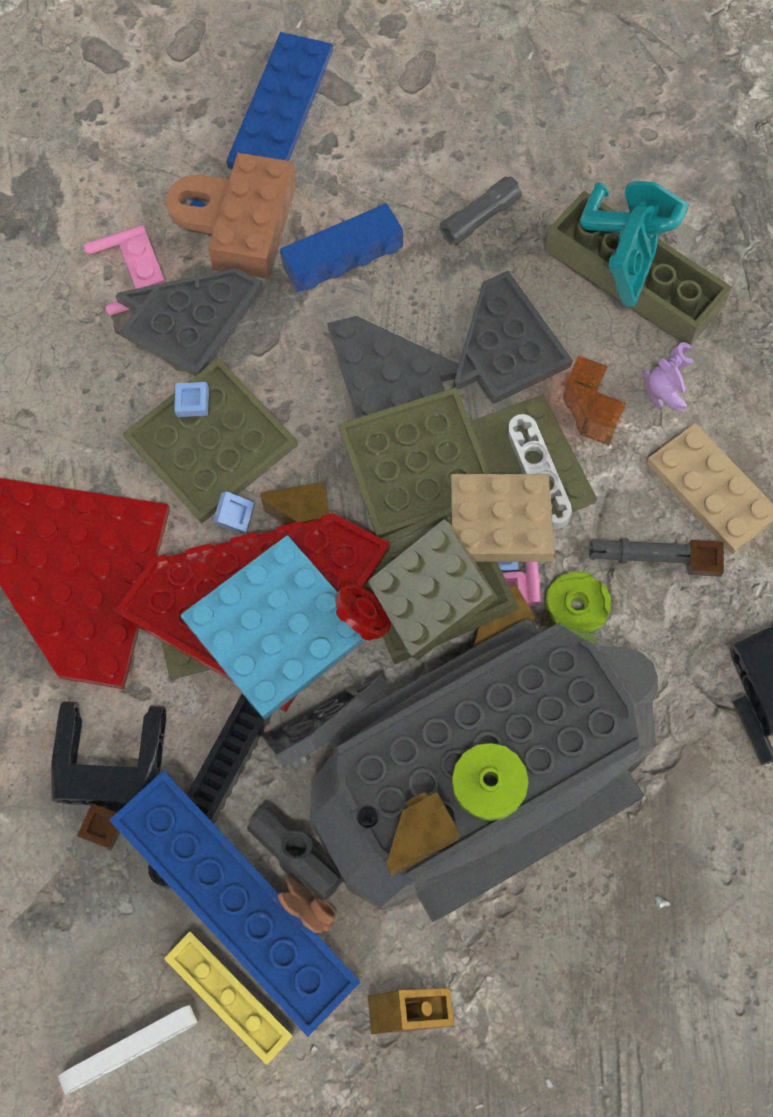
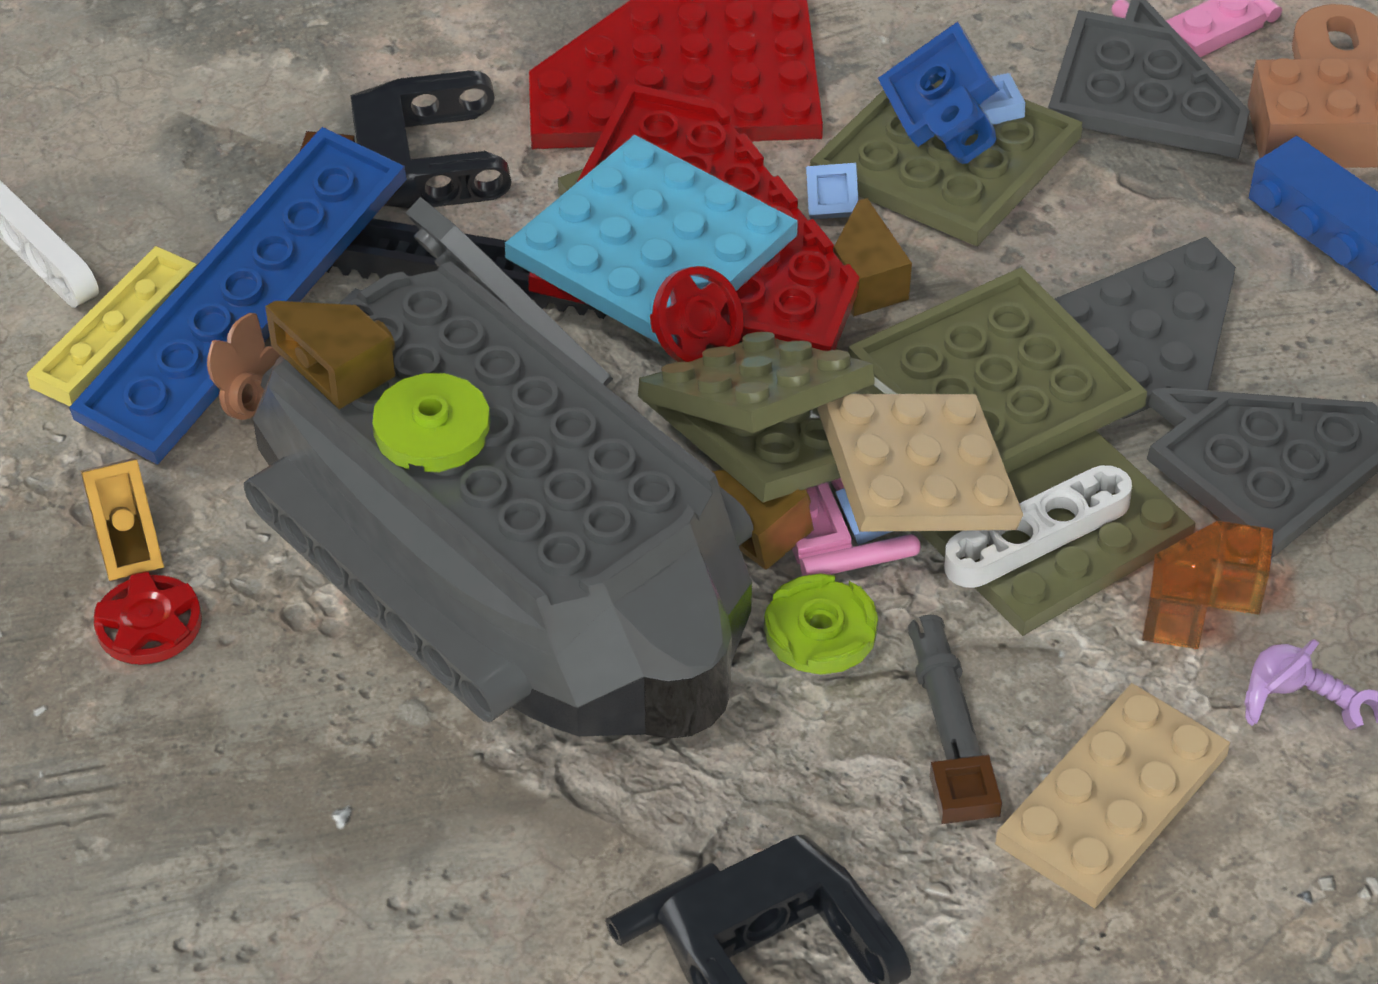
camera: 75 degrees right, 20 degrees down
(199, 423) = (954, 106): none -> blue plate
(491, 1003) = (147, 611): none -> red wheel

